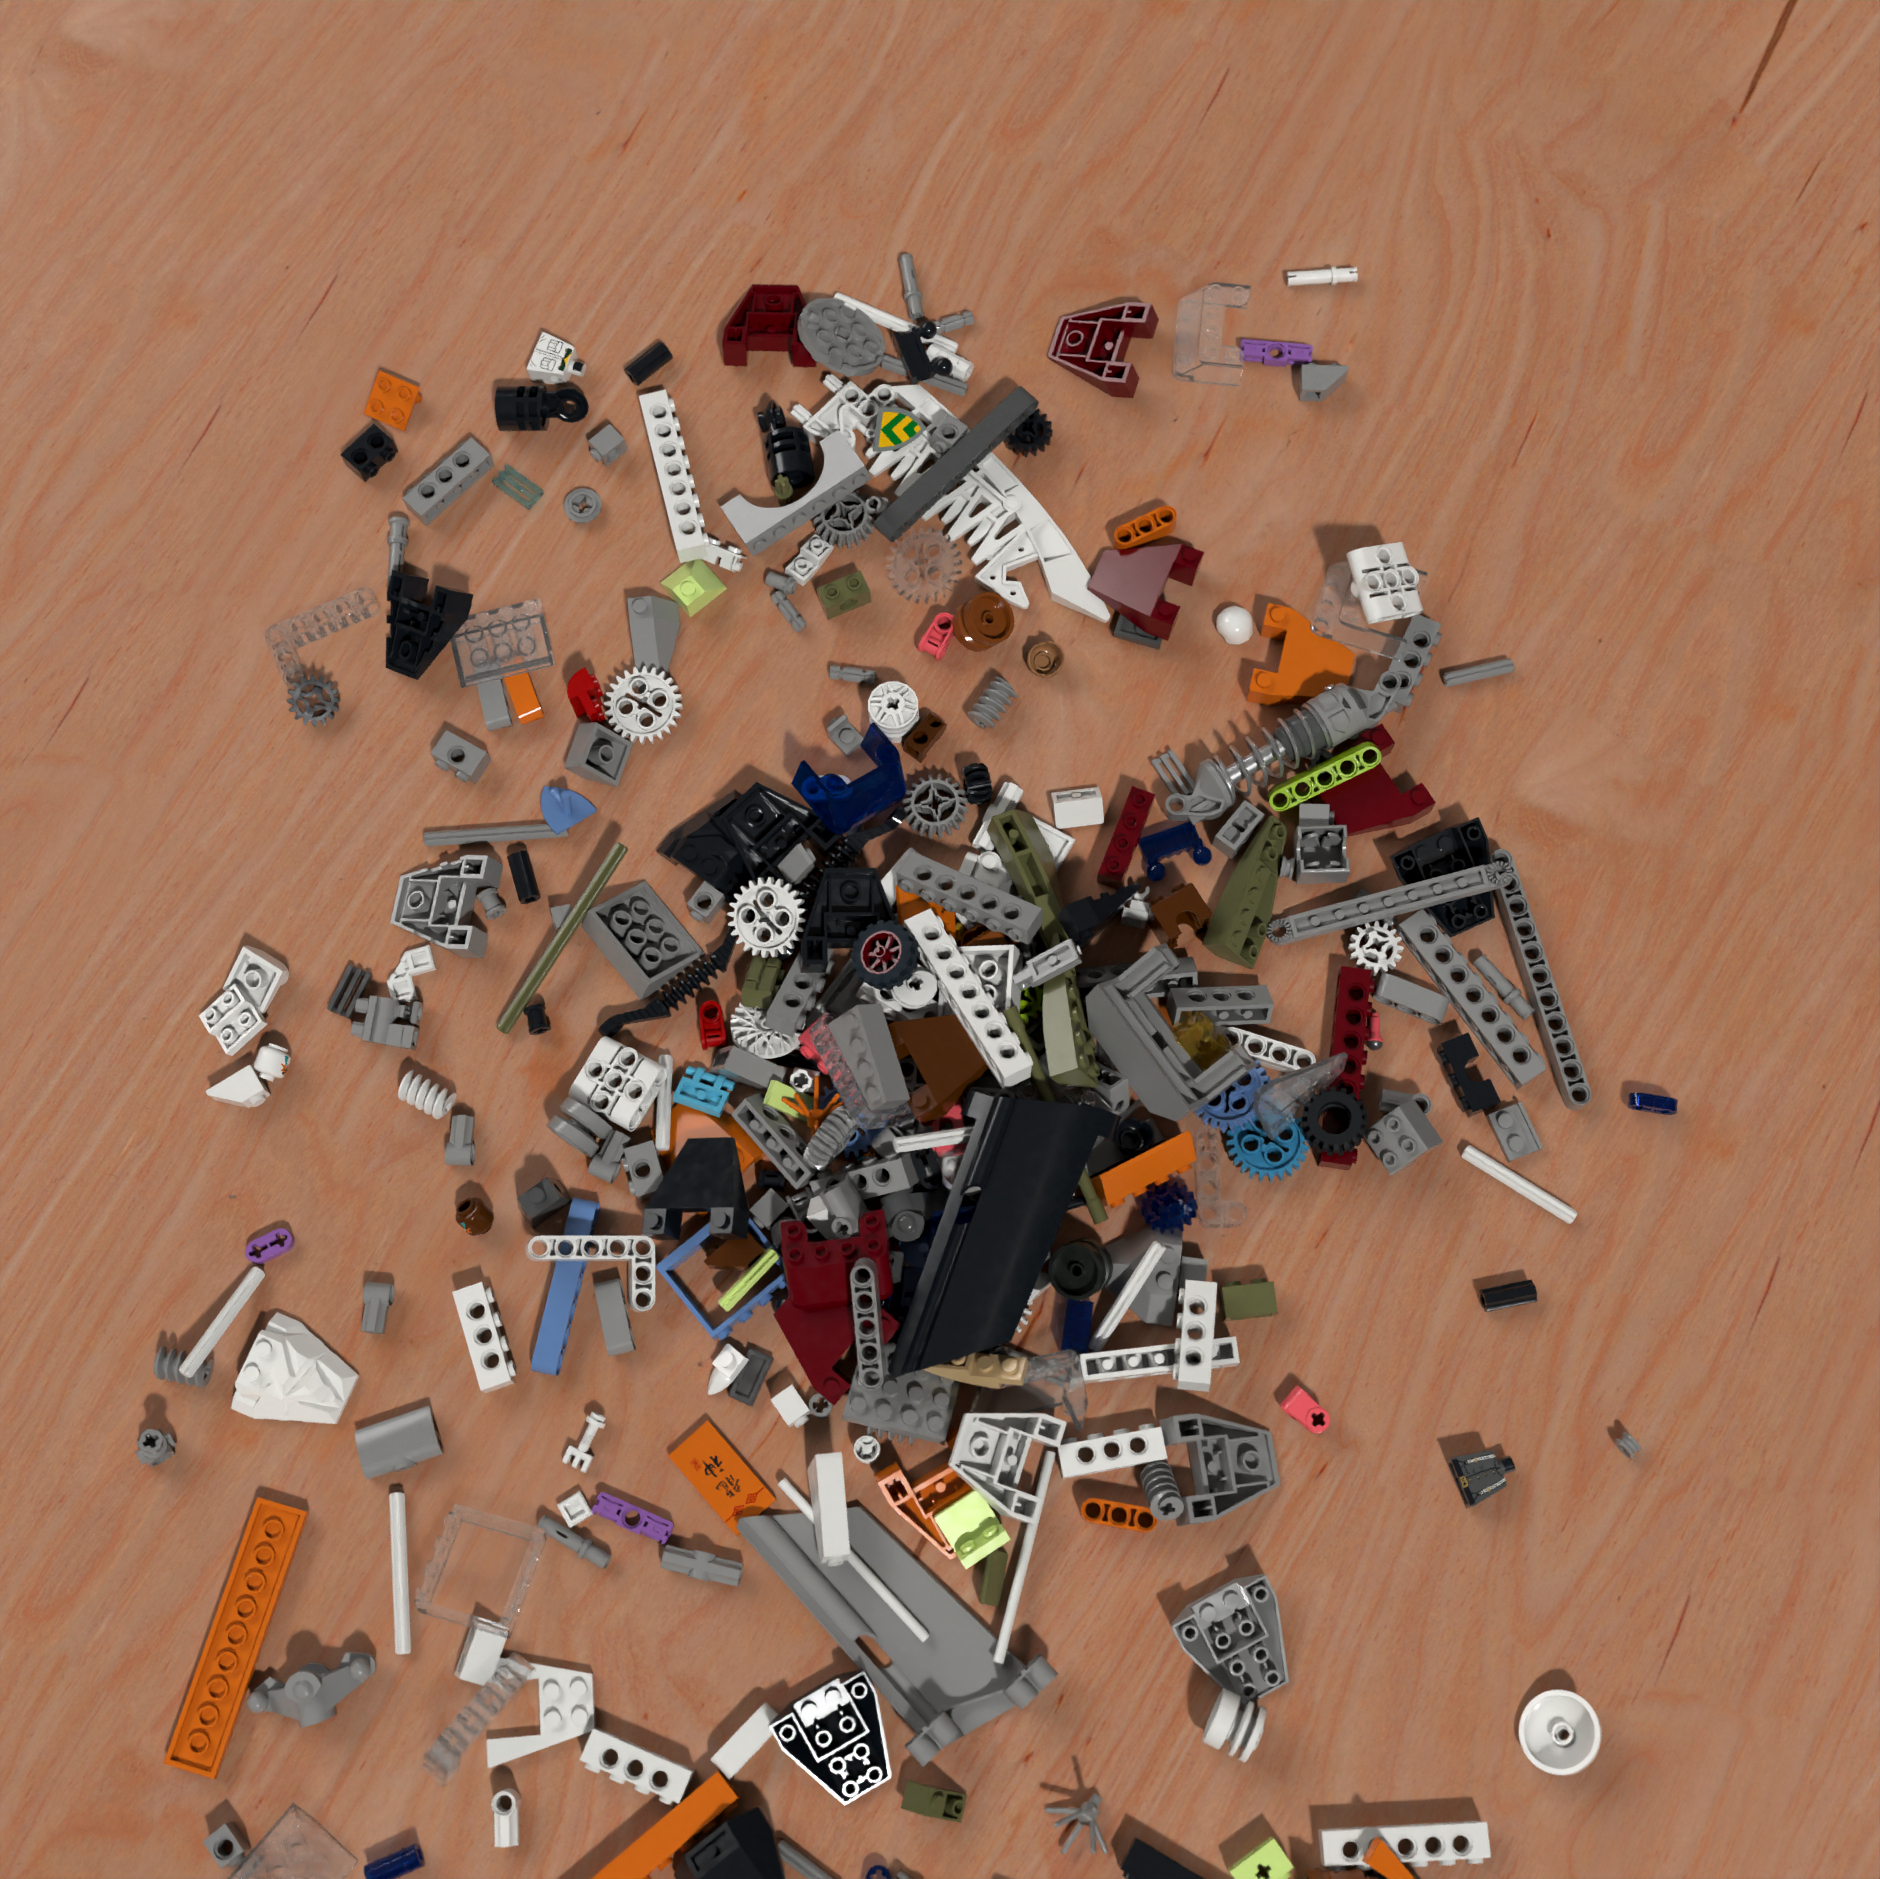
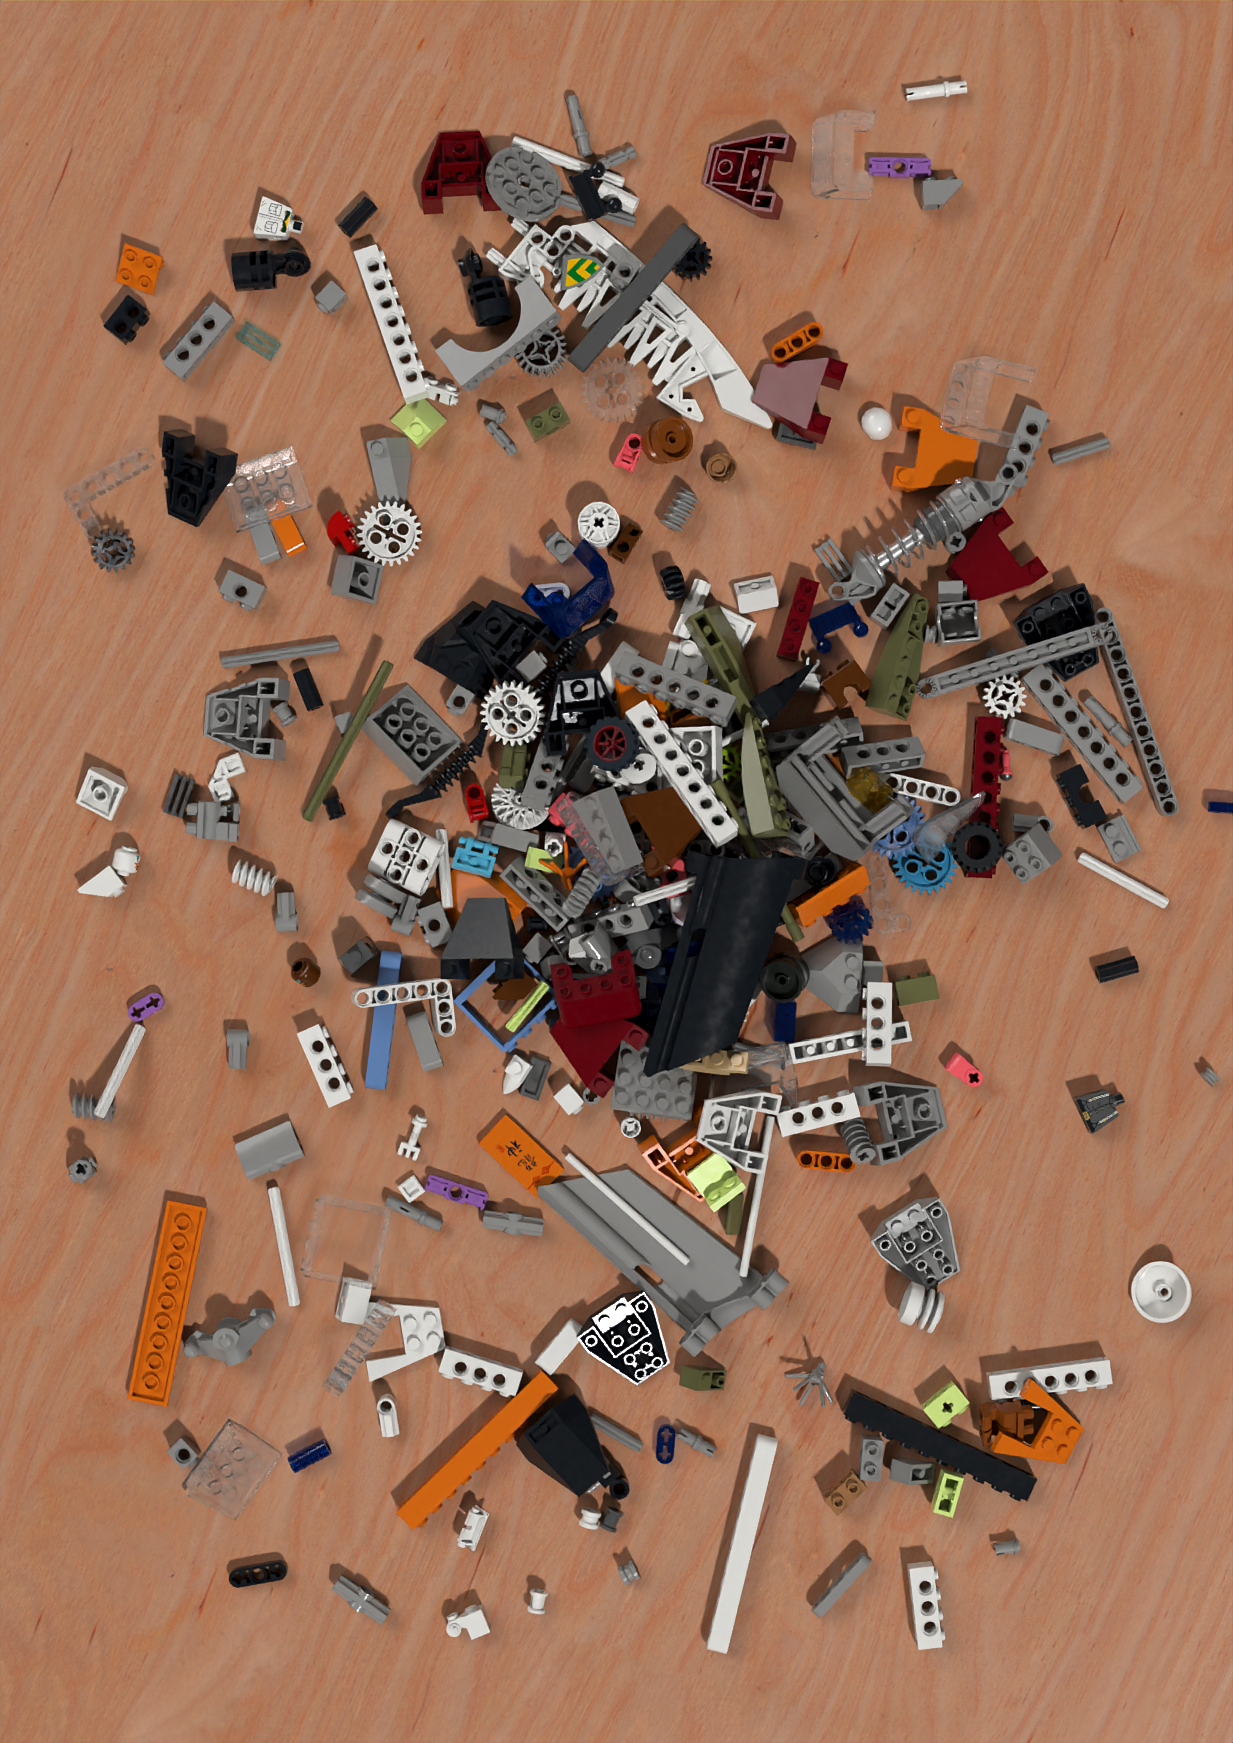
camera: 10 degrees left, 15 degrees up
(233, 1019) = (88, 827): white slope -> none
(292, 1376) = (180, 1106): white wedge -> none
(397, 543) = (162, 400): light grey pin -> none
(564, 808) = (333, 627): medium blue shield -> none
(577, 499) = (311, 348): light grey gear -> none
(783, 490) = (487, 332): olive axle -> none
(809, 560) = (514, 390): white slope -> none
(829, 1507) = (606, 1175): white slope -> none
(852, 674) = (560, 491): light grey axle -> none
(864, 1335) = (625, 1030): light grey beam -> none
(877, 504) = (571, 342): light grey pin -> none
(925, 807) = (630, 605): light grey gear -> none
(1048, 965) = (744, 742): light grey hinge -> none
(1126, 1296) = (822, 995): white axle -> none
(1336, 777) = (961, 548): lime beam -> none
(1384, 582) = (1001, 385): white connector -> none

